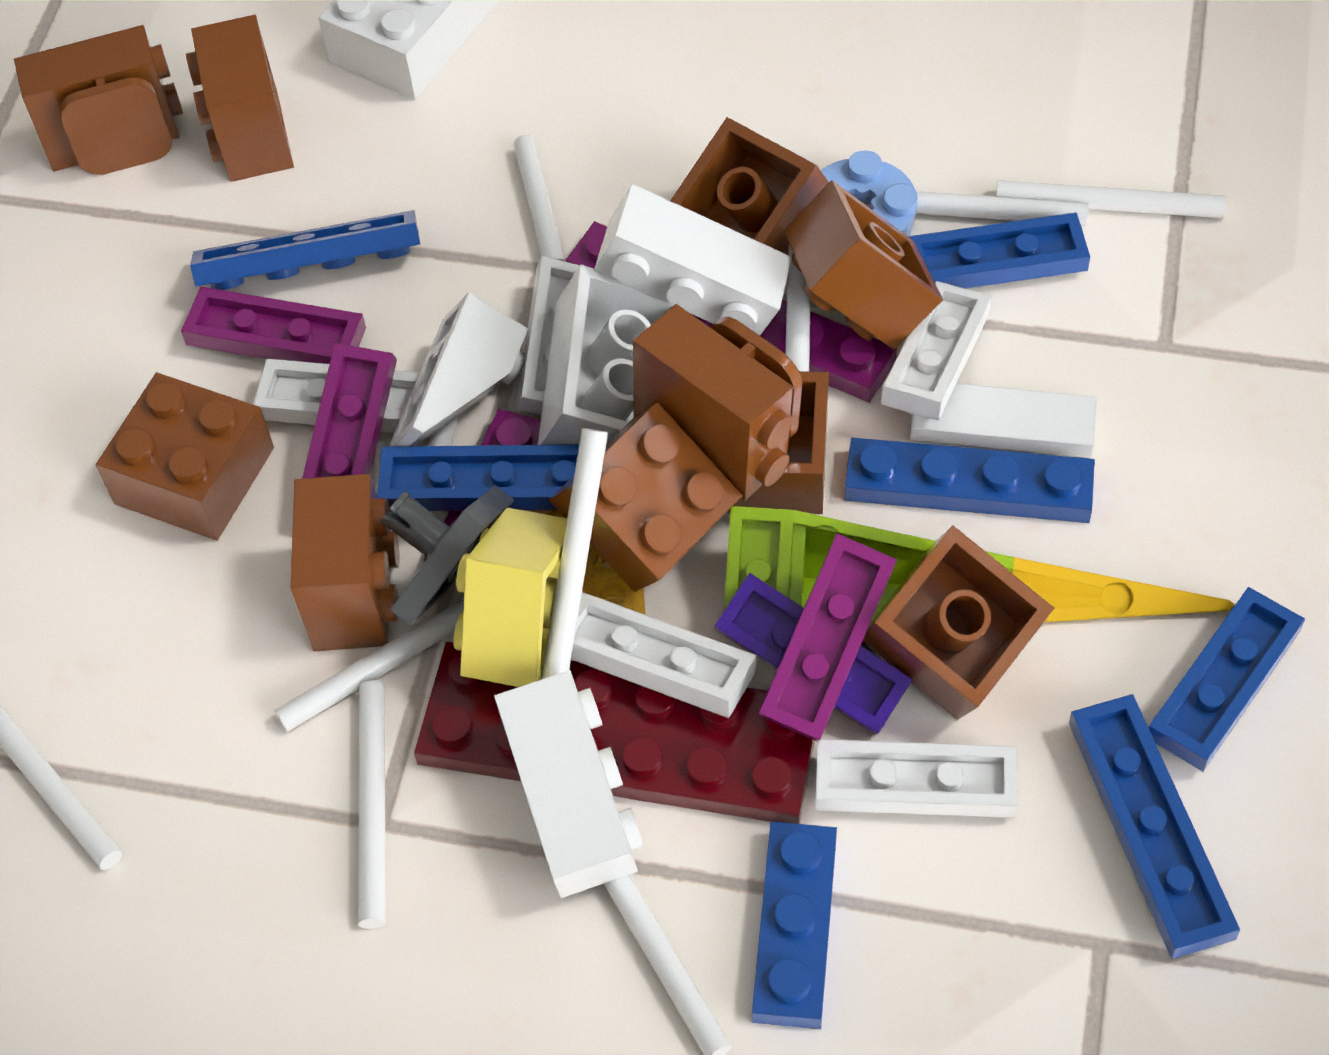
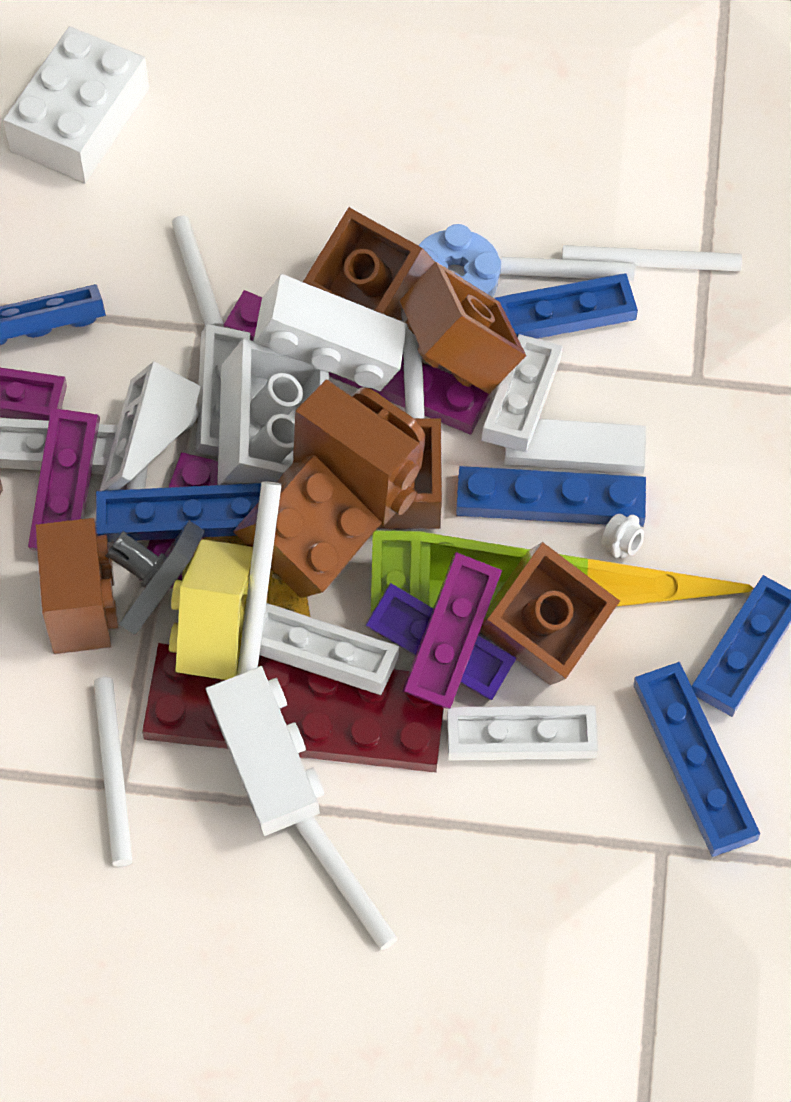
camera: 10 degrees left, 5 degrees up
(369, 667) = (104, 663): white bar -> none
(794, 925) = (438, 846): blue plate -> none
(1061, 531) = (623, 536): none -> white plate

